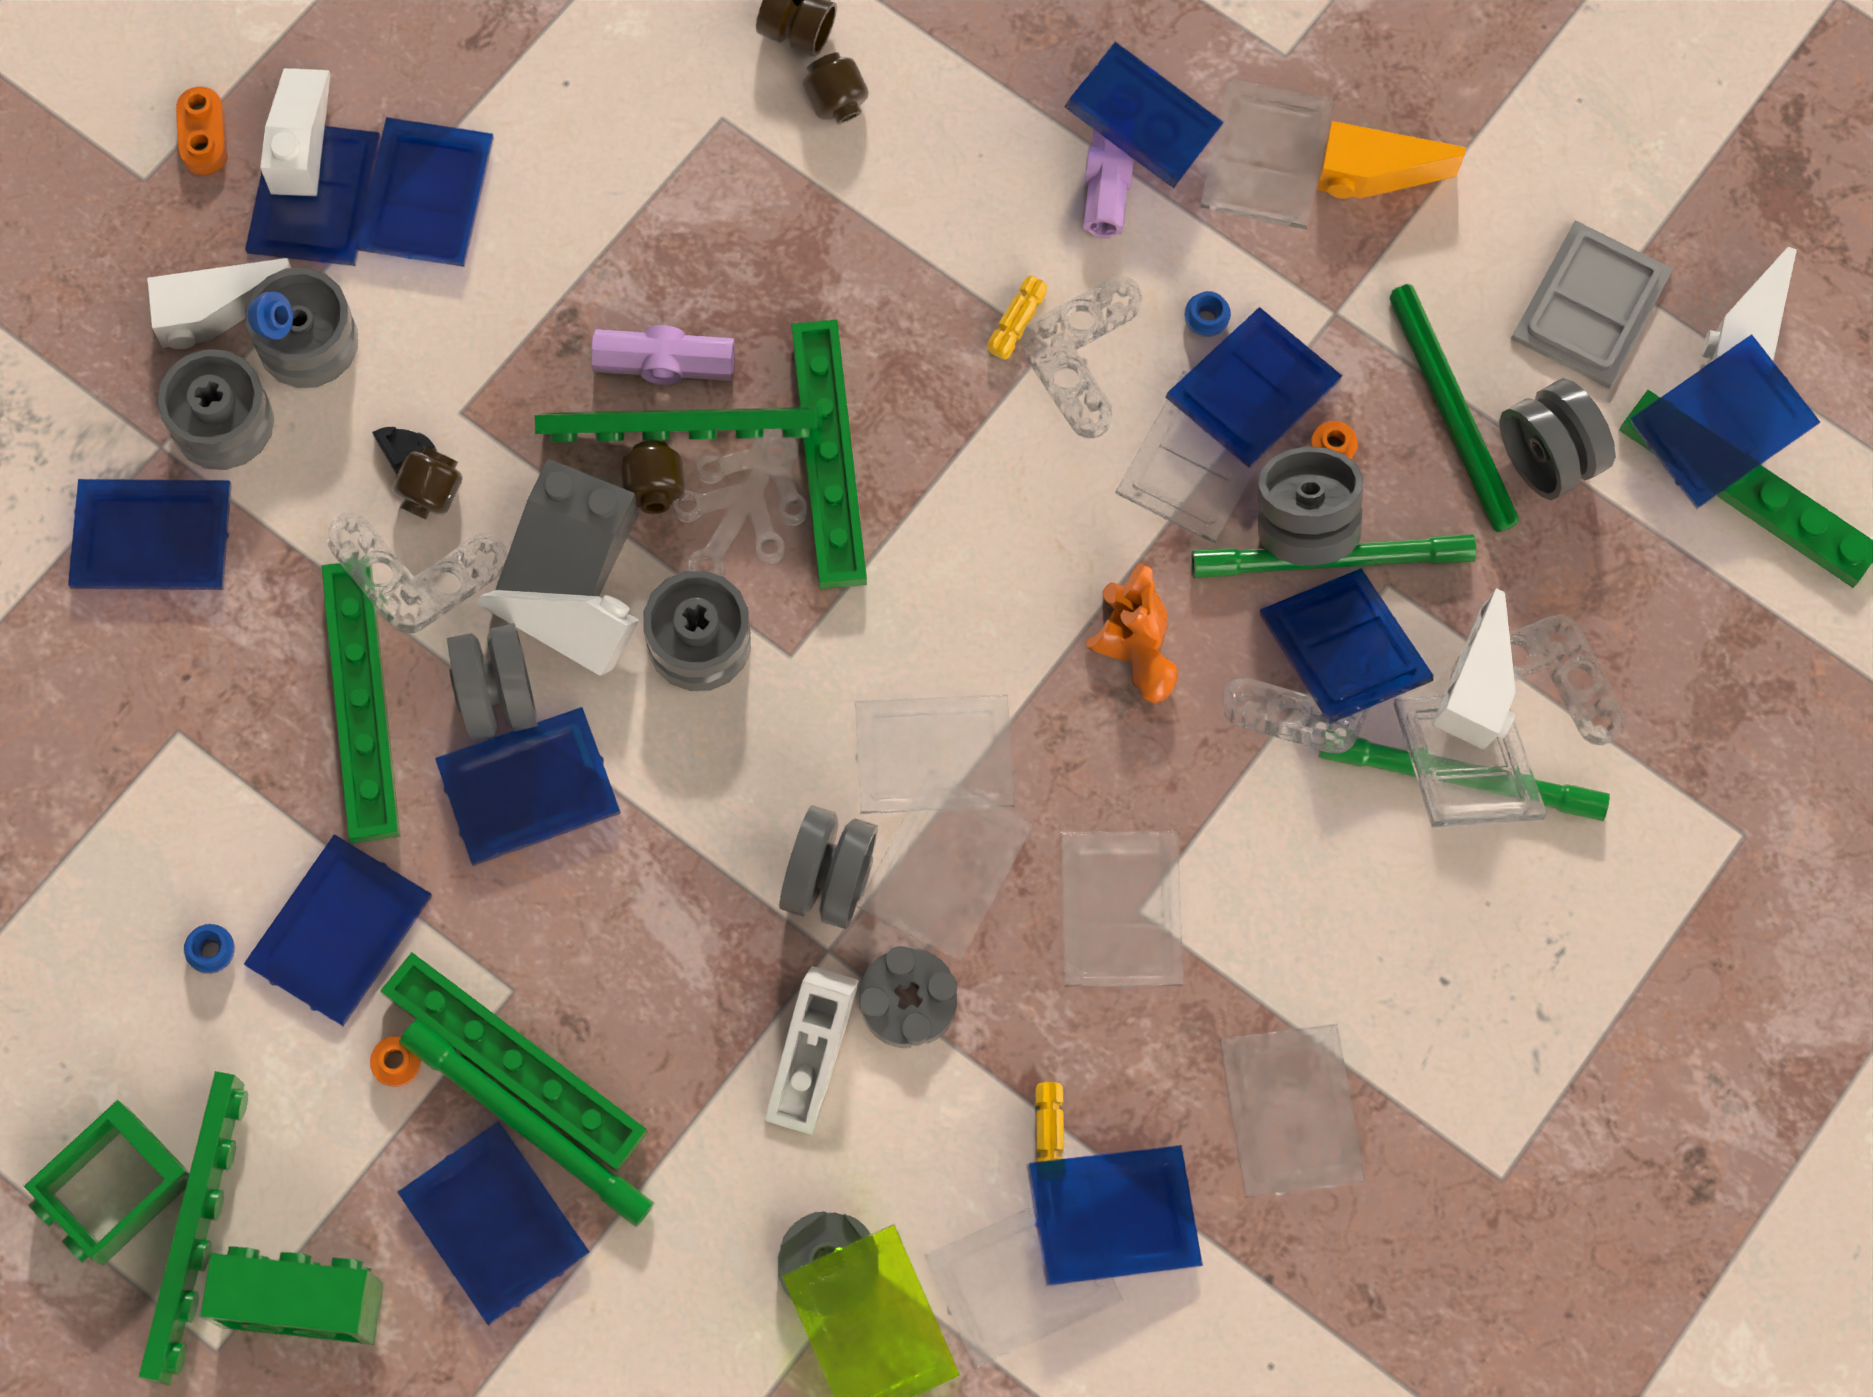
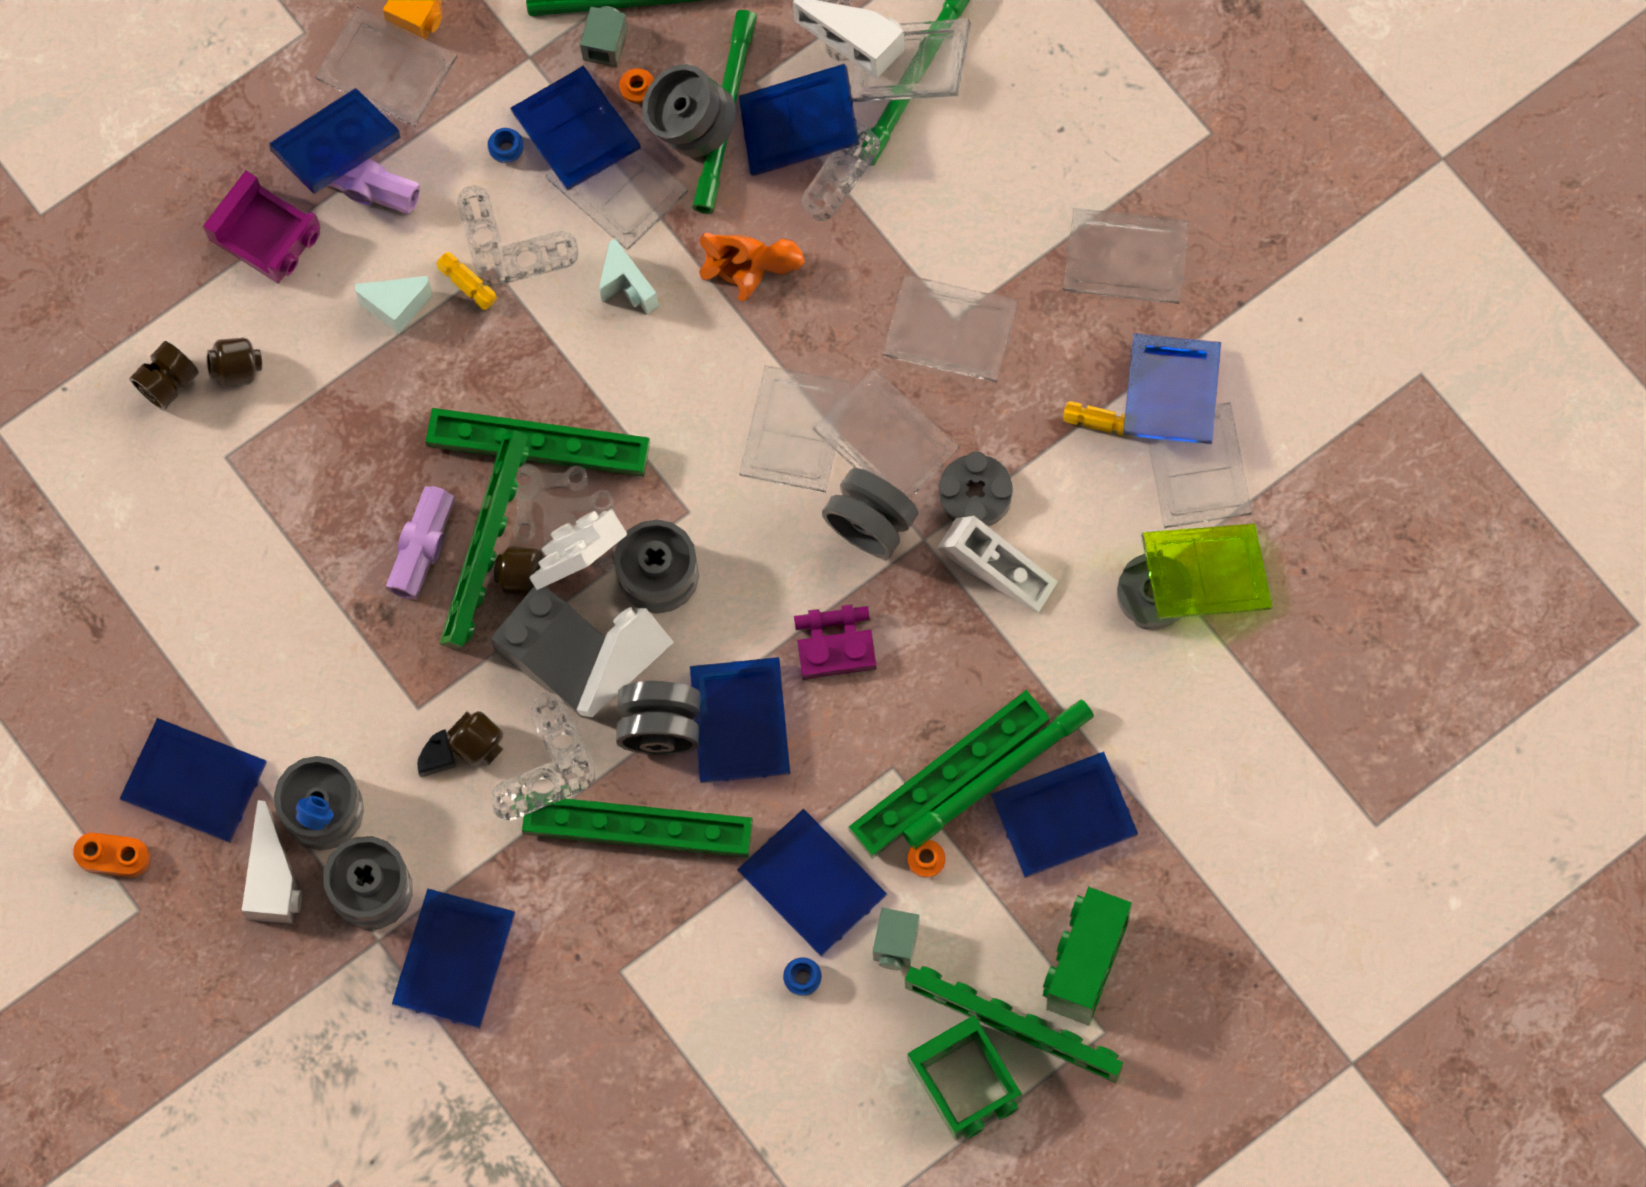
camera: 65 degrees left, 0 degrees up
(277, 1049) = (895, 938): none -> sand green brick
(296, 132) = (143, 772): white slope -> none
(424, 192) = (222, 692): clear blue piece -> none
(644, 879) = (839, 652): none -> magenta plate
(683, 524) = (577, 546): none -> white plate
(964, 244) = (395, 300): none -> light aqua slope
(1016, 73) = (261, 228): none -> magenta panel
(1075, 490) = (622, 274): none -> light aqua slope
(1386, 385) = (604, 36): none -> sand green brick

